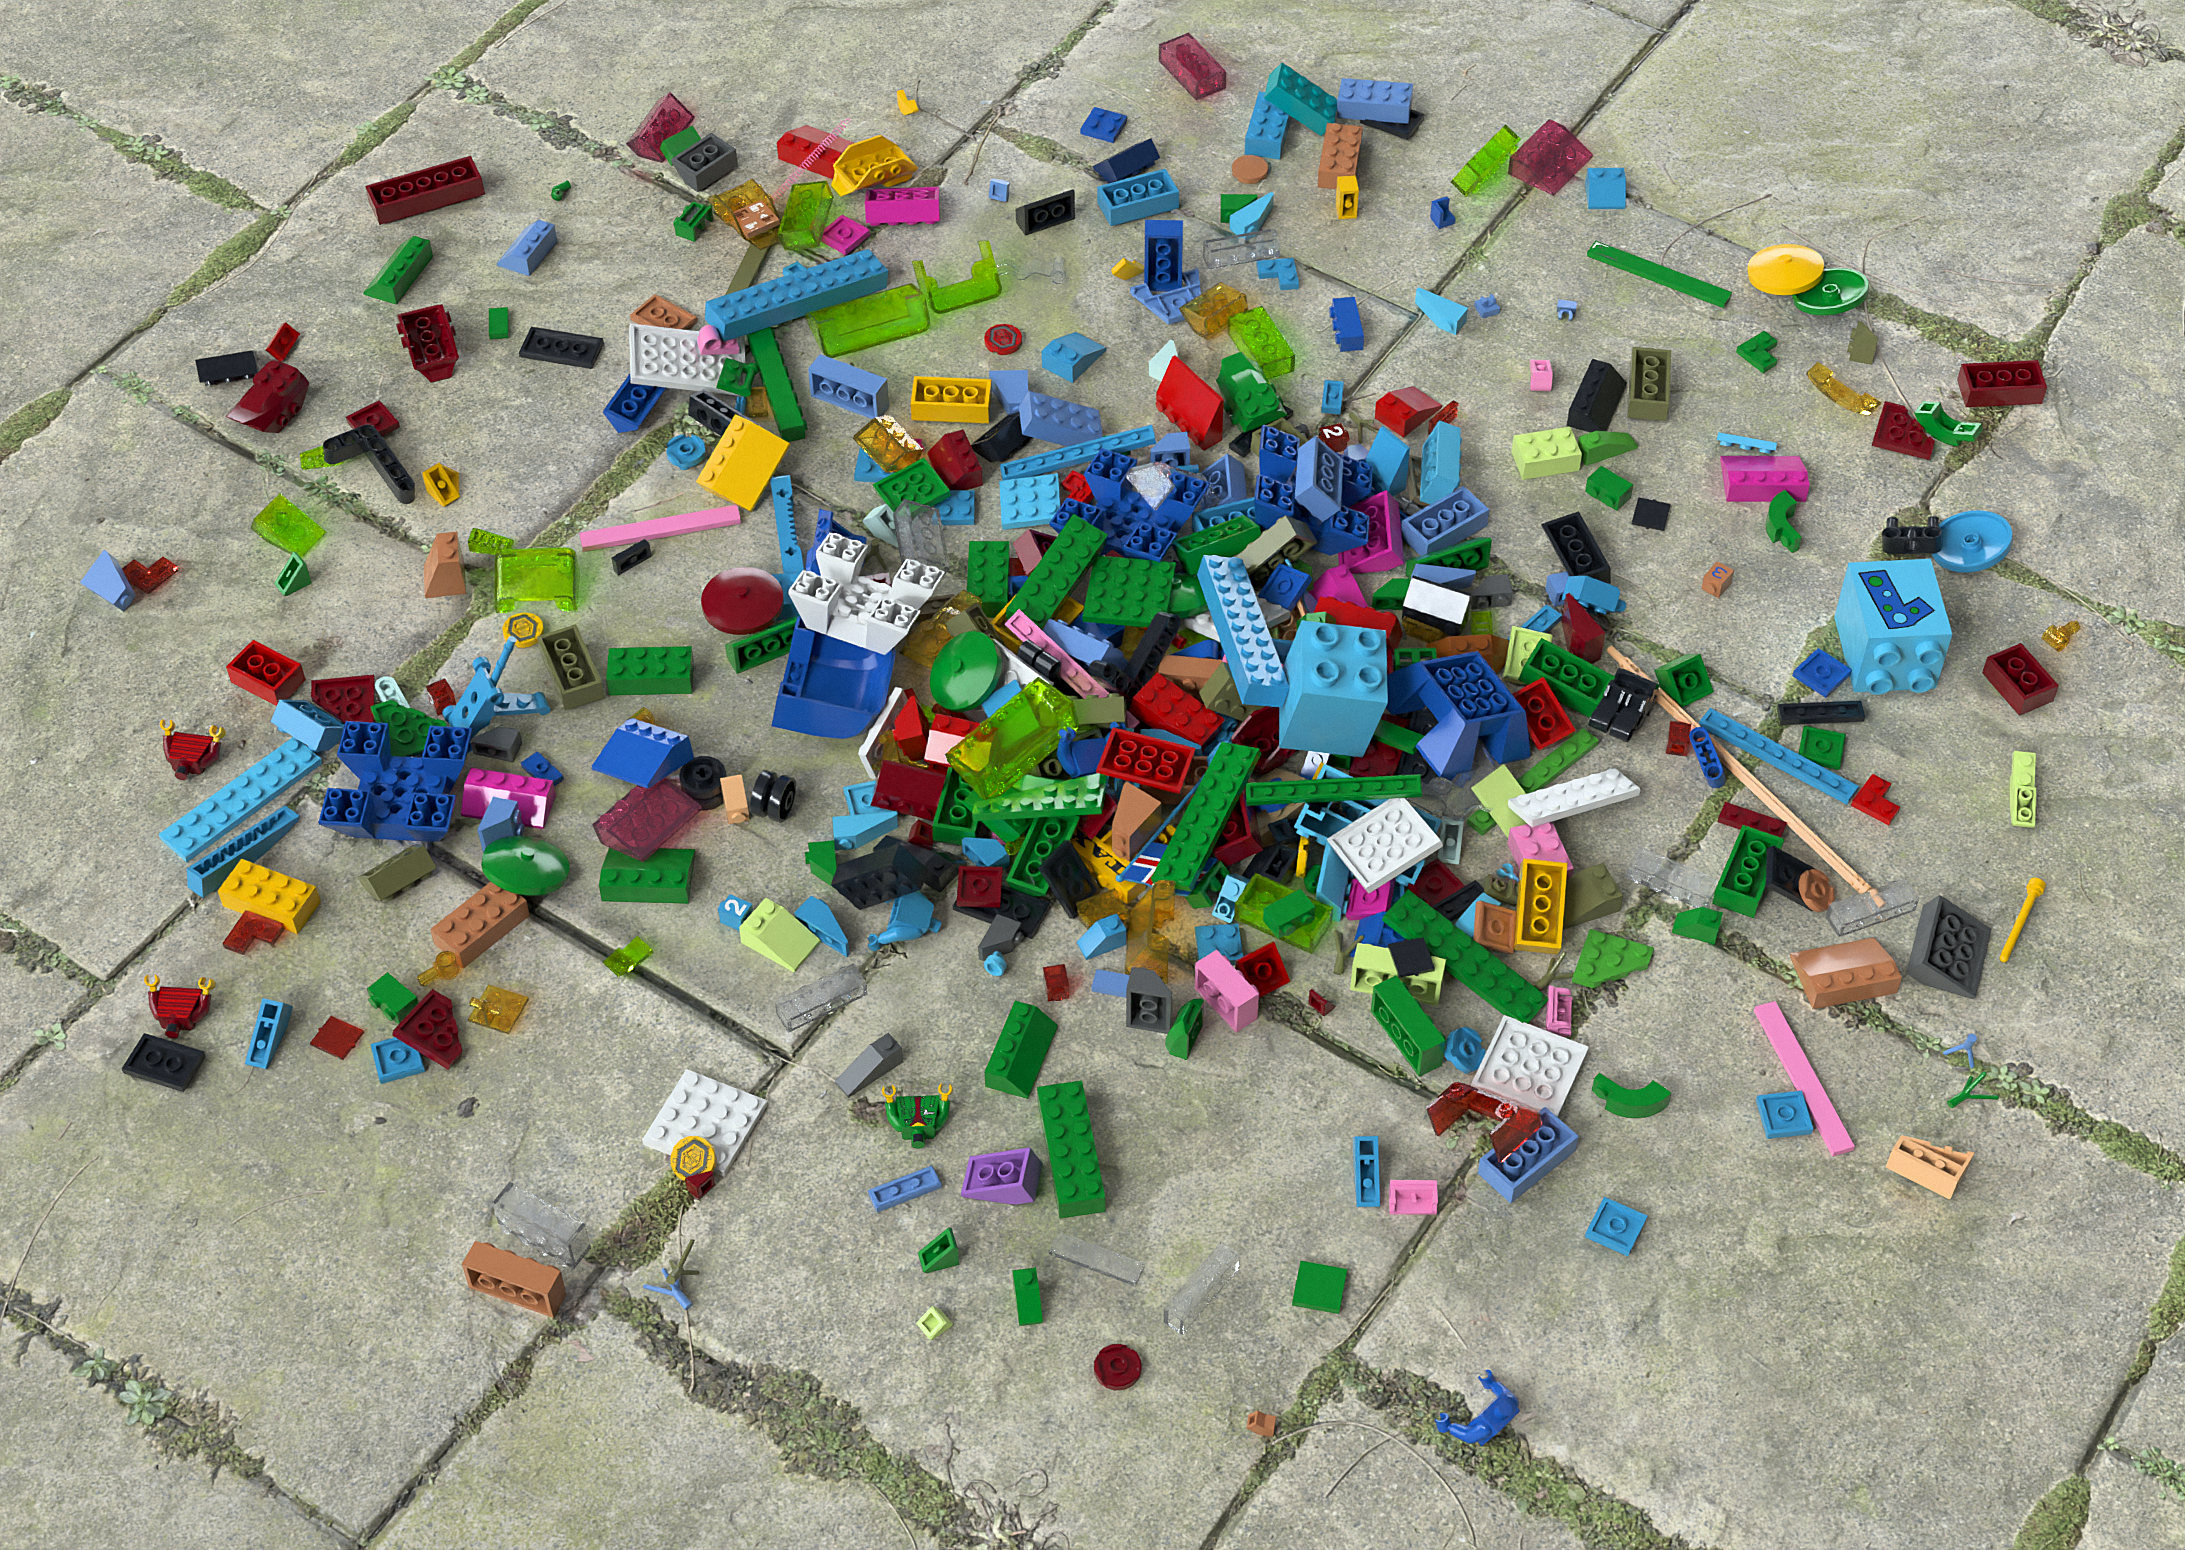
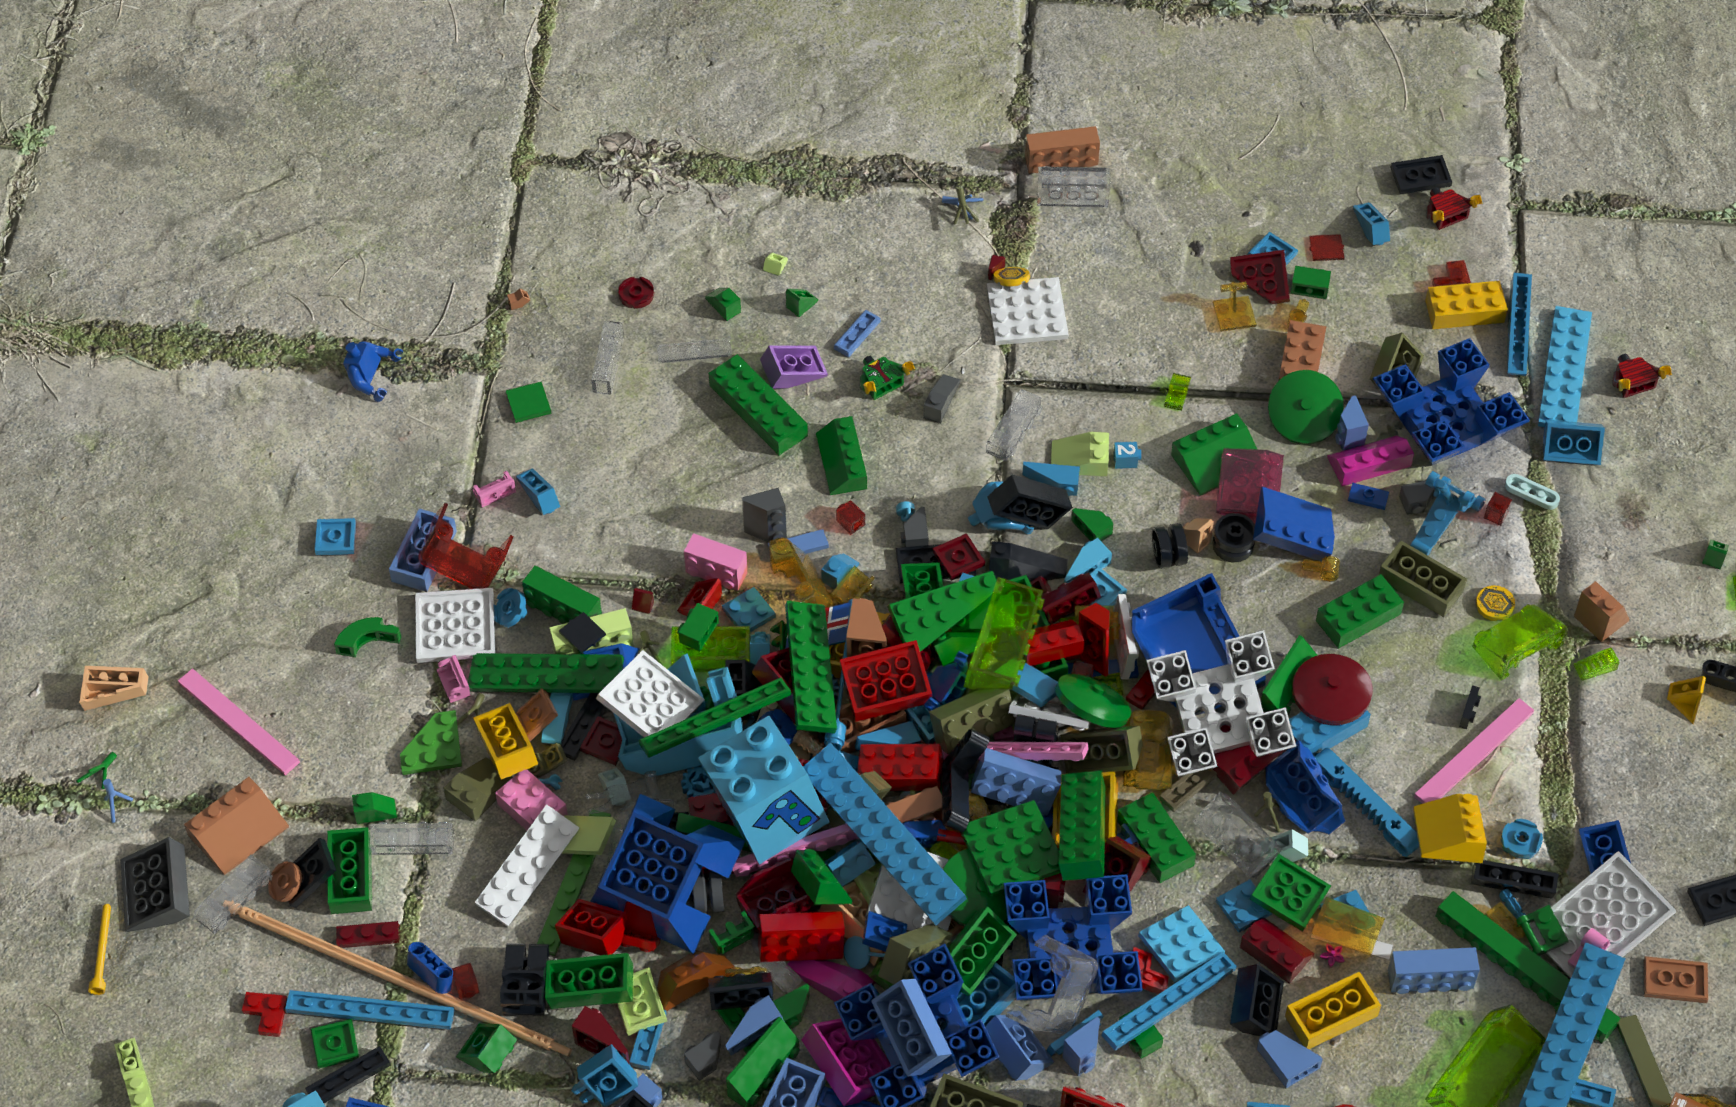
camera: 150 degrees right, 5 degrees up
(265, 673) = (1645, 457): red brick -> none
(346, 697) = (1567, 475): dark red plate -> none
(406, 727) = (1494, 468): green plate -> none
(1058, 420) = (1208, 1022): medium blue brick -> none
(1068, 877) = (892, 584): black tile -> none
(1185, 1029) = (730, 522): green slope -> none
(1481, 616) = (701, 1025): clear neon green slope -> none
(1784, 1114) = (241, 680): dark azure plate -> none

